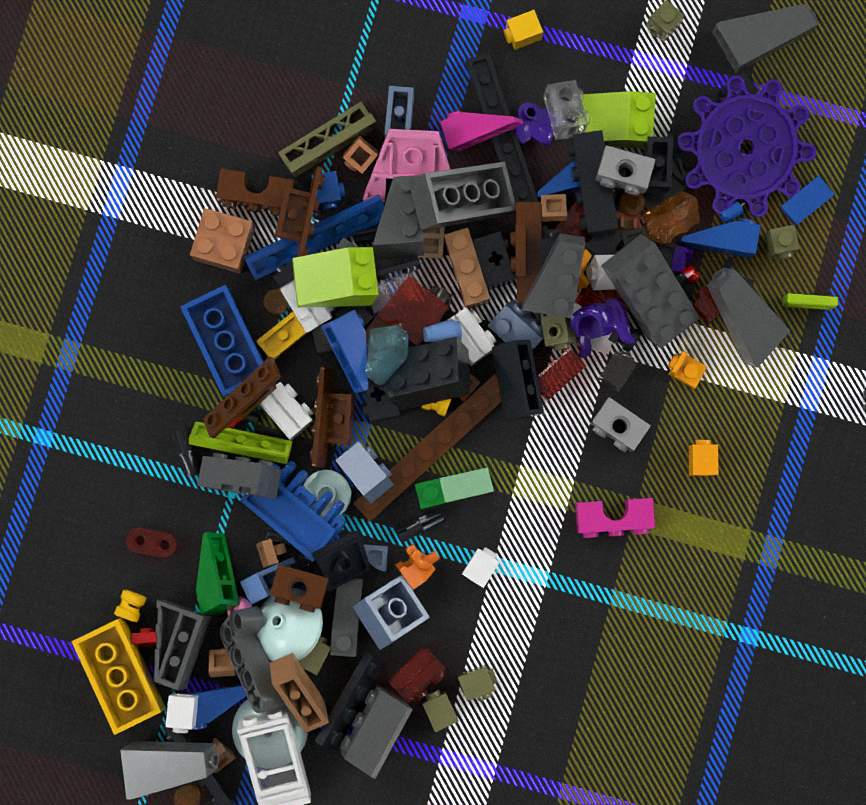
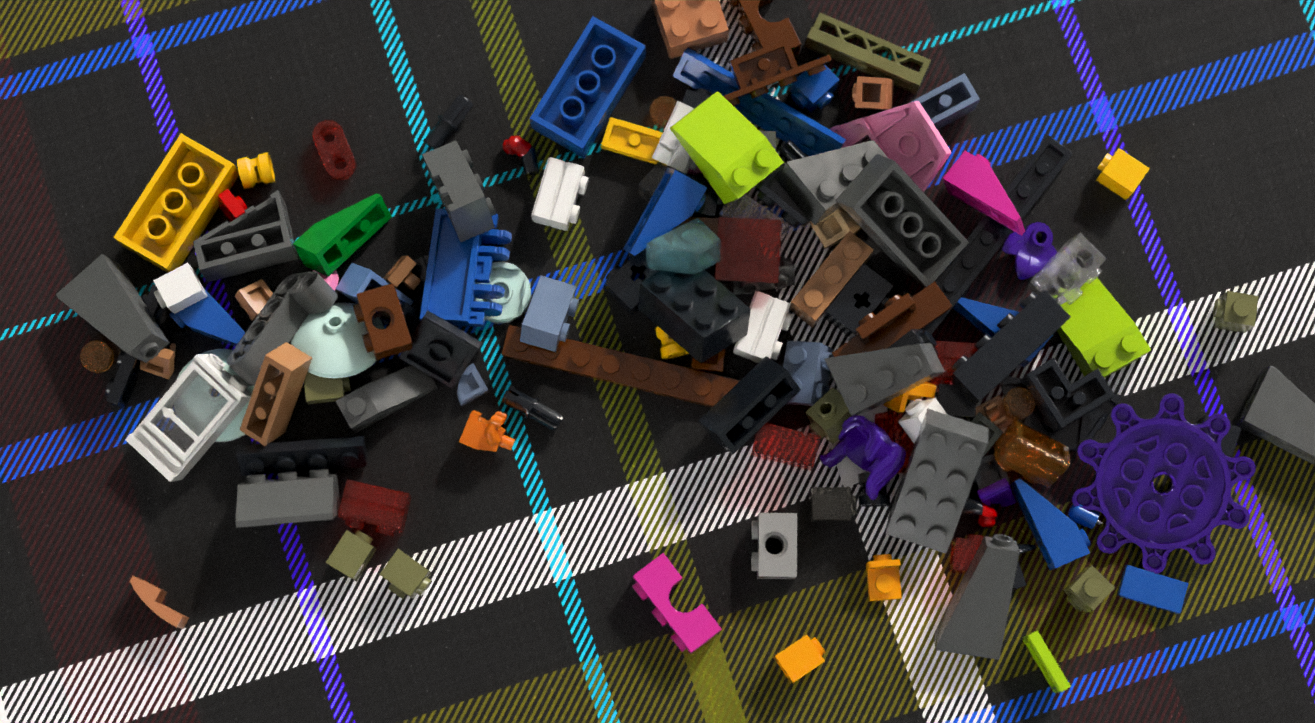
camera: 50 degrees right, 5 degrees down
(243, 398) = (540, 139): reddish brown bracket -> none
(243, 443) = (495, 170): lime tile -> none
(333, 418) = (581, 245): reddish brown bracket -> none
(390, 612) = (420, 434): sand blue brick -> none
(442, 331) = (747, 293): medium blue cone -> none
(454, 488) = (593, 416): slope -> none
(481, 566) = (530, 499): white brick -> none
(553, 207) = (956, 324): medium nougat tile -> none
(638, 165) = (1046, 347): light grey brick -> none

